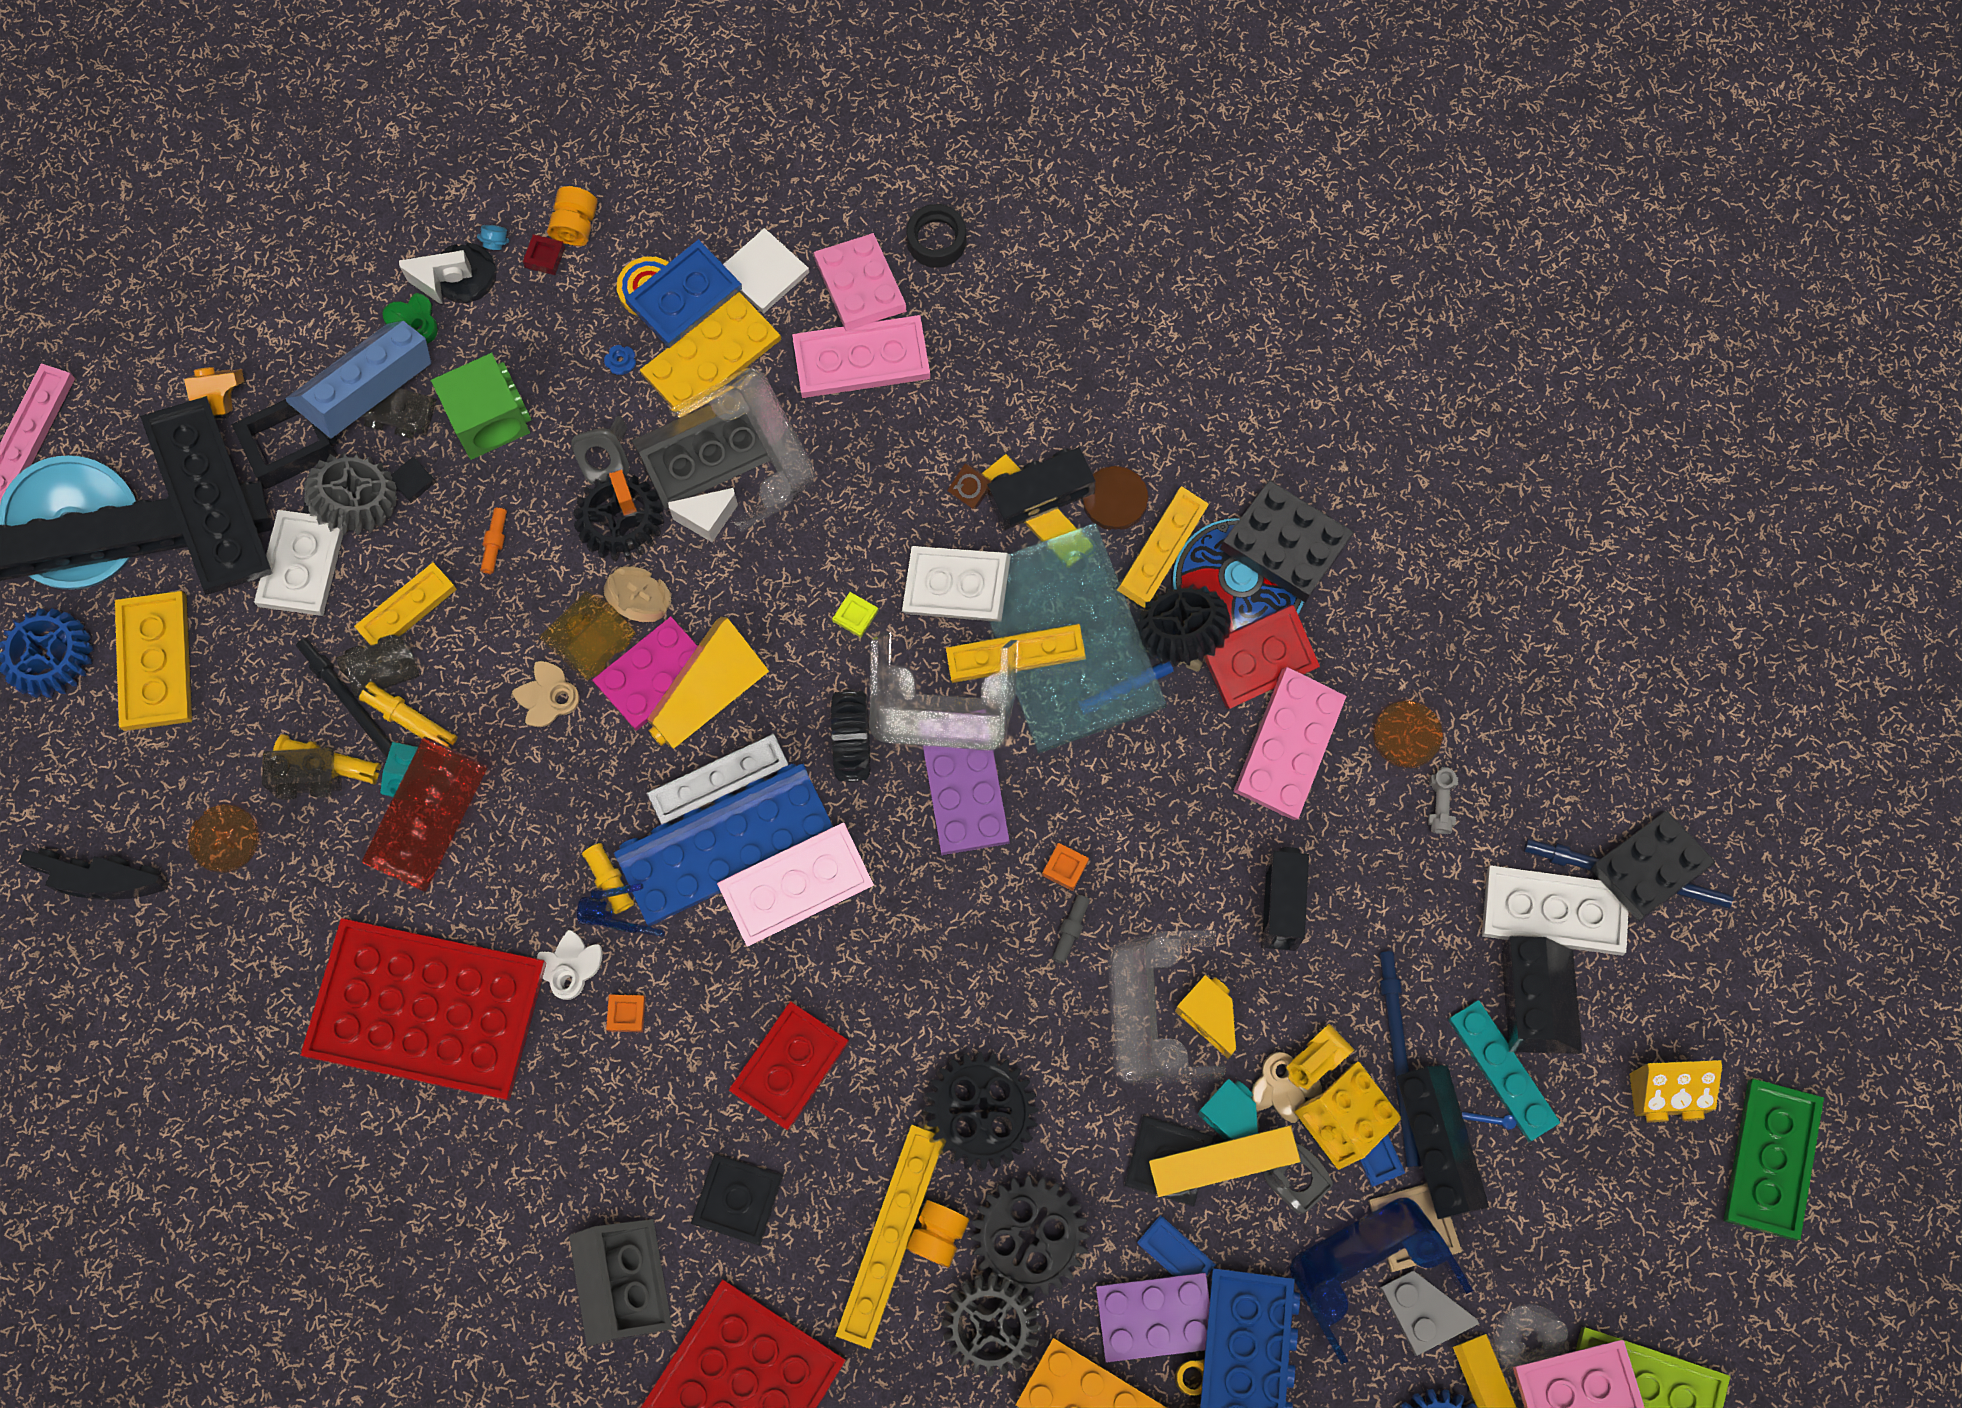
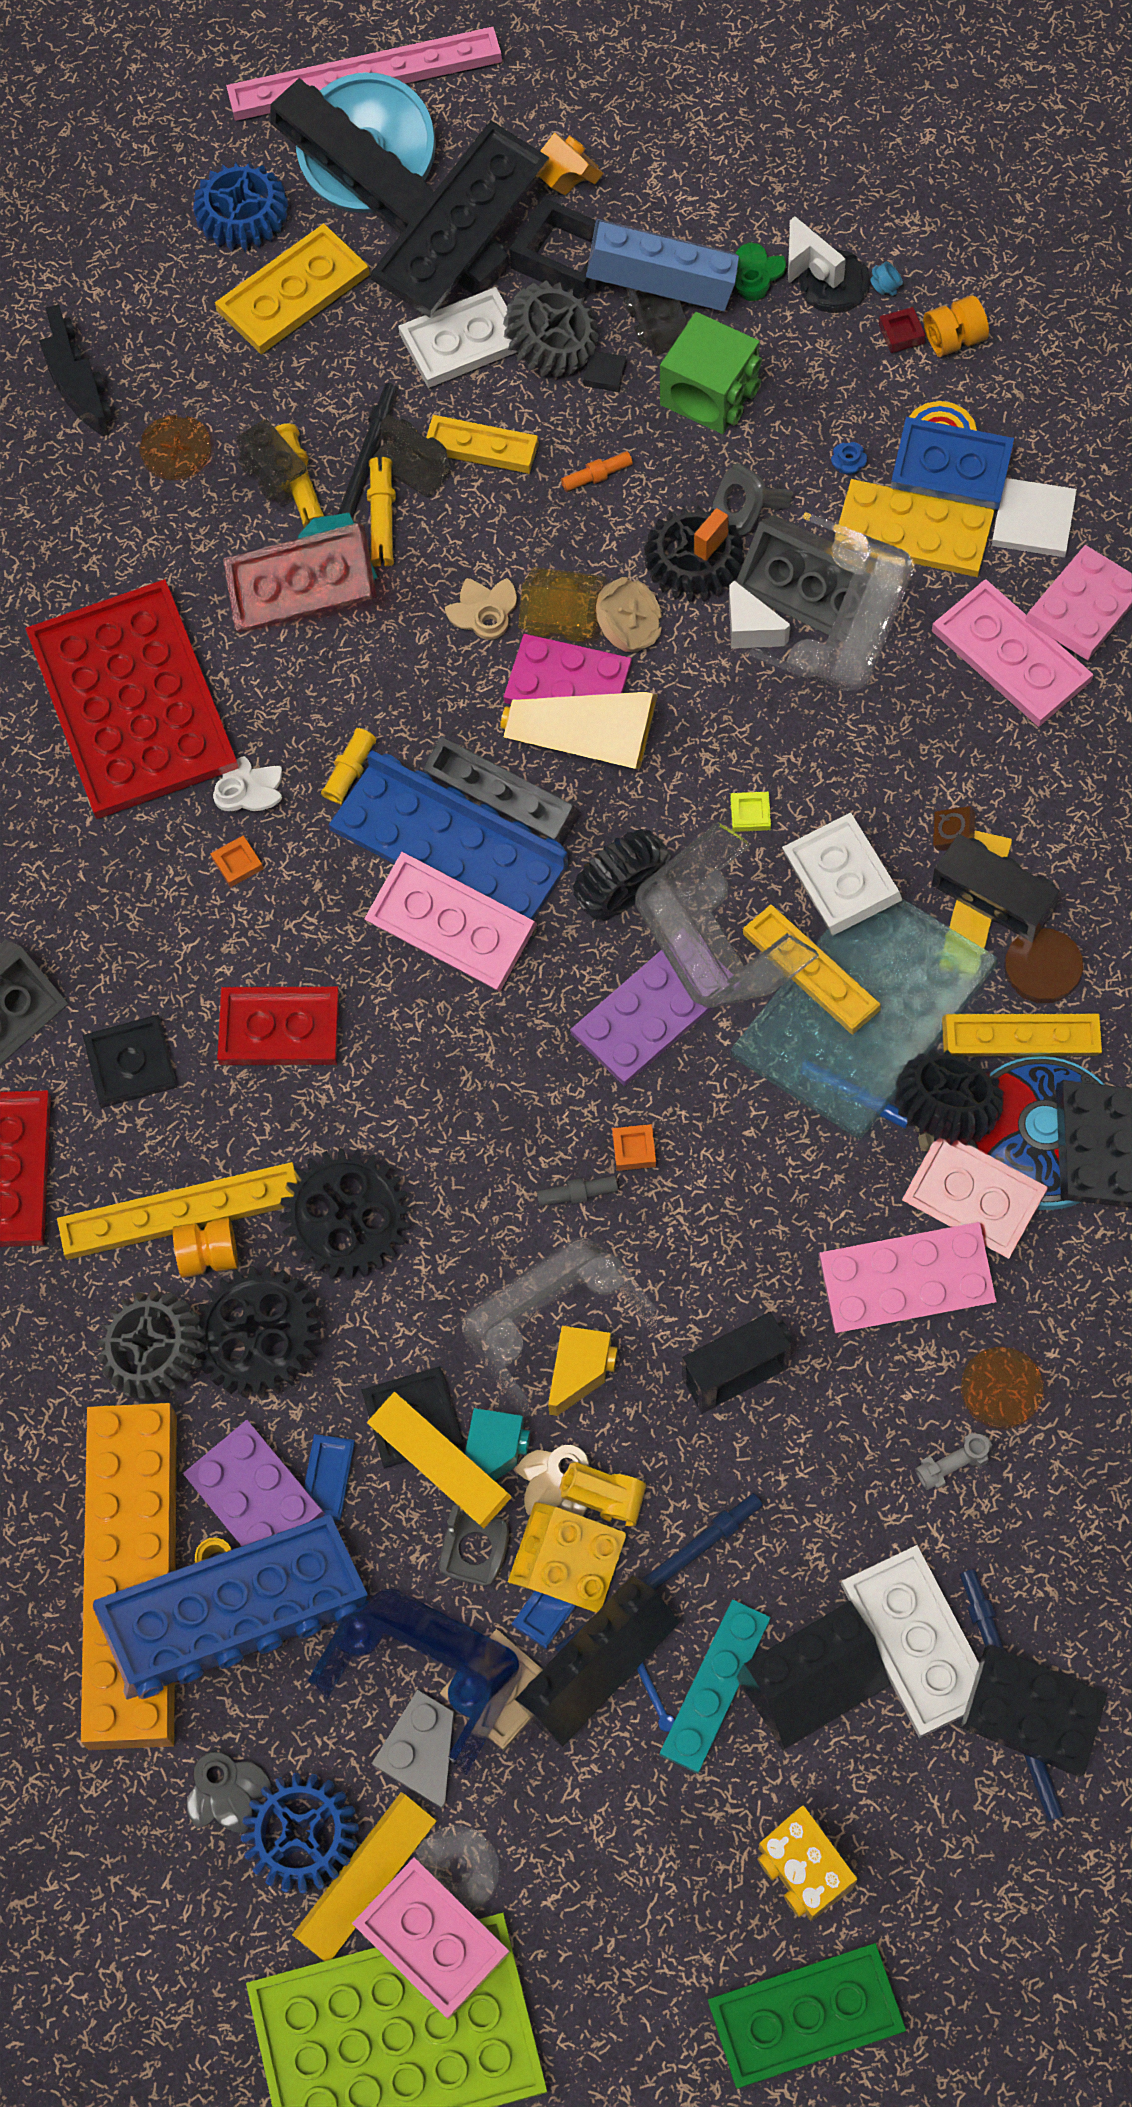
camera: 60 degrees right, 5 degrees down
(598, 912) = (311, 777): clear blue plant -> none

